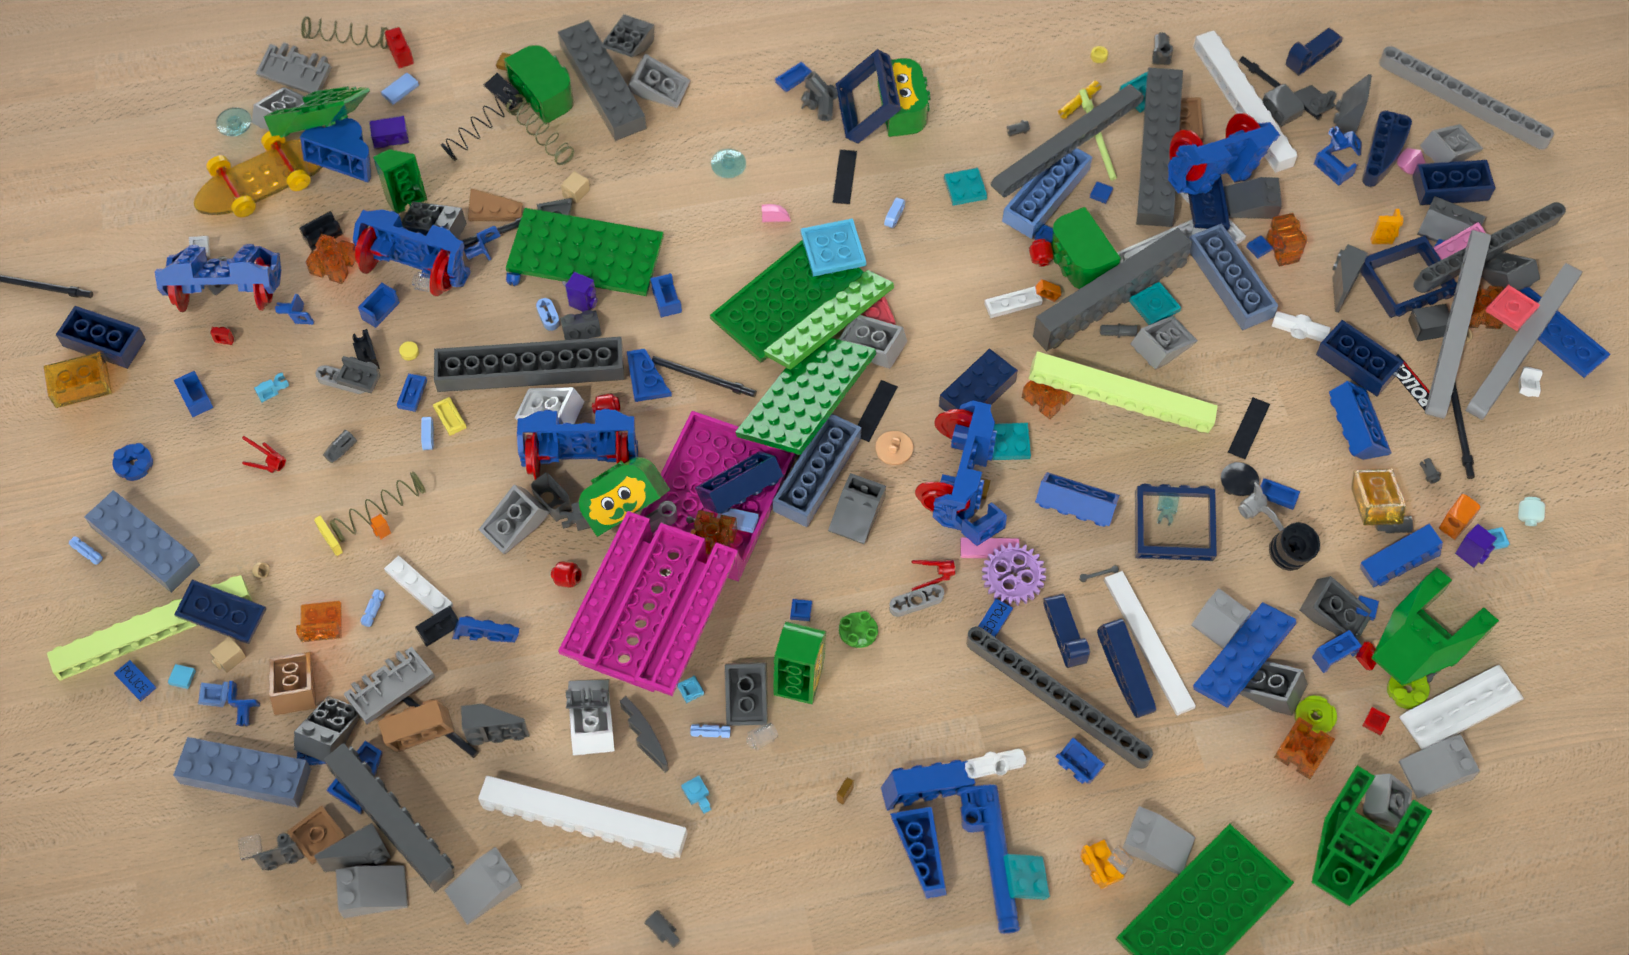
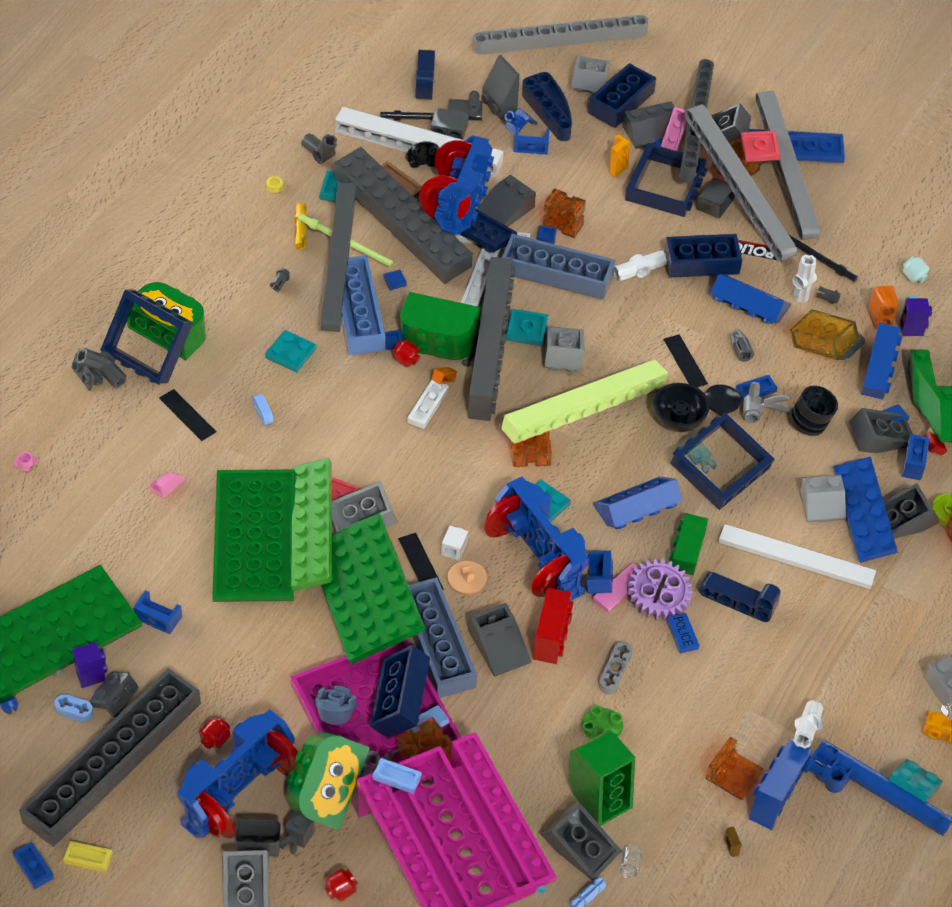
camera: 50 degrees left, 10 degrees down
(427, 433) = (88, 884): light blue beam -> none
(563, 400) = (164, 774): white slope -> none
(645, 379) = (217, 688): blue wing -> none
(652, 532) = (397, 775): none -> light blue tile
(690, 453) = (335, 705): none -> sand blue cone
(704, 124) = (25, 461): none -> bright pink plate
(728, 163) = (80, 476): clear light blue dish -> none
(736, 387) = (299, 634): black bar -> none
(793, 76) = (54, 371): blue tile -> none
(801, 610) = (544, 749): blue tile -> none
(833, 247) = (251, 469): medium azure plate -> none
(901, 530) = (553, 626): none -> red brick
(906, 744) = (733, 771): none -> clear orange bracket
(911, 415) = (454, 543): none -> white brick
(919, 838) = (832, 828): blue wedge -> none
(944, 568) = (606, 628): red plant -> none
(981, 382) = (477, 481): dark blue brick -> none
(1062, 705) = (840, 638): dark grey beam -> none
(1076, 561) = (688, 543): none -> green brick
(1080, 761) = (853, 672): blue bracket -> none
(1083, 577) = (704, 552): dark grey hinge -> none
(1118, 330) = (524, 364): dark grey axle -> none
(1126, 667) = (808, 582): dark blue beam -> none
(1191, 456) = (681, 407): none -> black piece
(1228, 108) = (422, 154): none -> black dish
(1305, 452) = (742, 346): none -> dark grey hinge
(1346, 269) = (631, 207): dark grey slope -> none
(1409, 159) = (577, 101): bright pink brick -> none
(1415, 440) = (805, 278): none -> white piece
(1529, 382) = (817, 190): white bracket -> none

